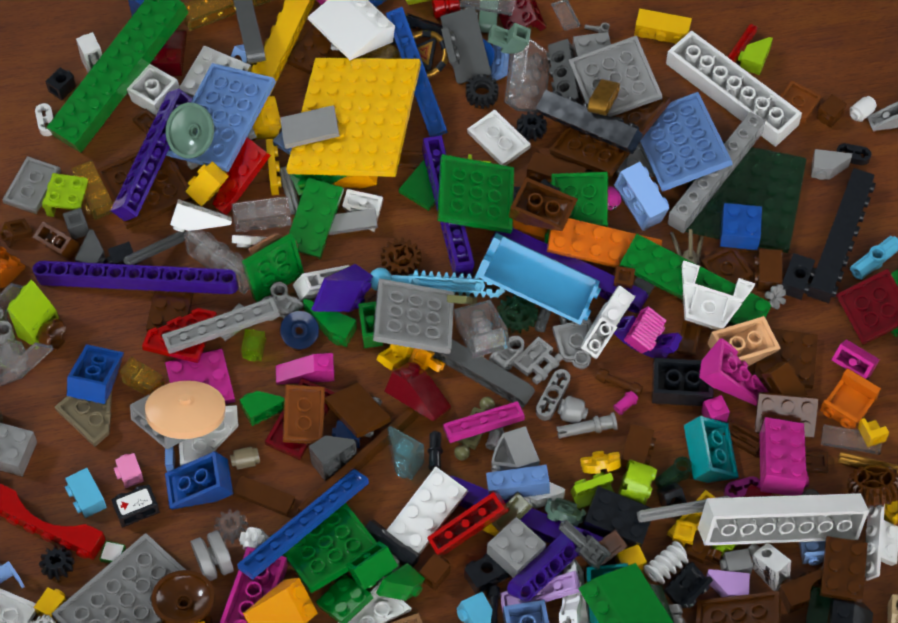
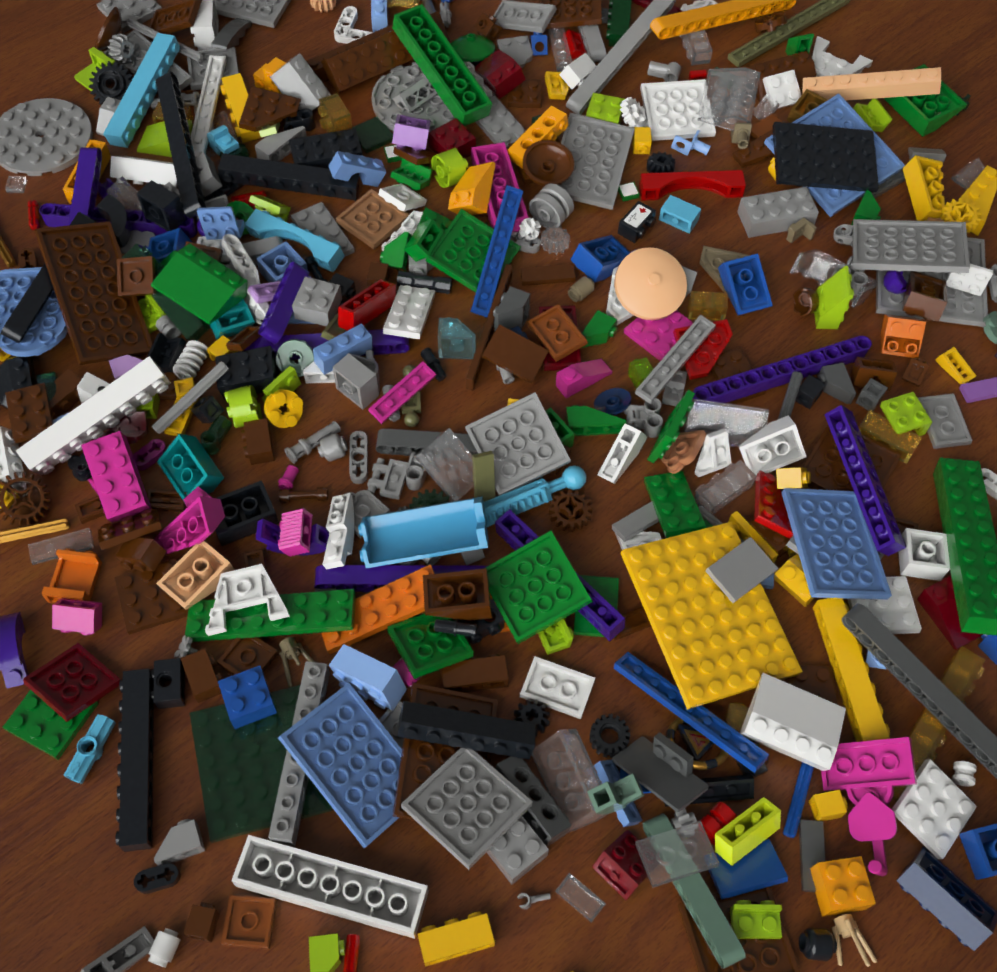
camera: 150 degrees right, 0 degrees up
(128, 470) = (662, 240): bright pink brick -> none
(182, 130) = (845, 501): sand green dish -> none
(343, 290) = (593, 440): dark purple slope -> none
(417, 390) = (472, 391): dark red slope -> none
(587, 547) = (254, 318): dark grey connector -> none
(603, 97) = (462, 753): pearl gold beam -> none
(624, 277) = (343, 578): reddish brown plate -> none
(872, 432) = (38, 550): yellow panel -> none

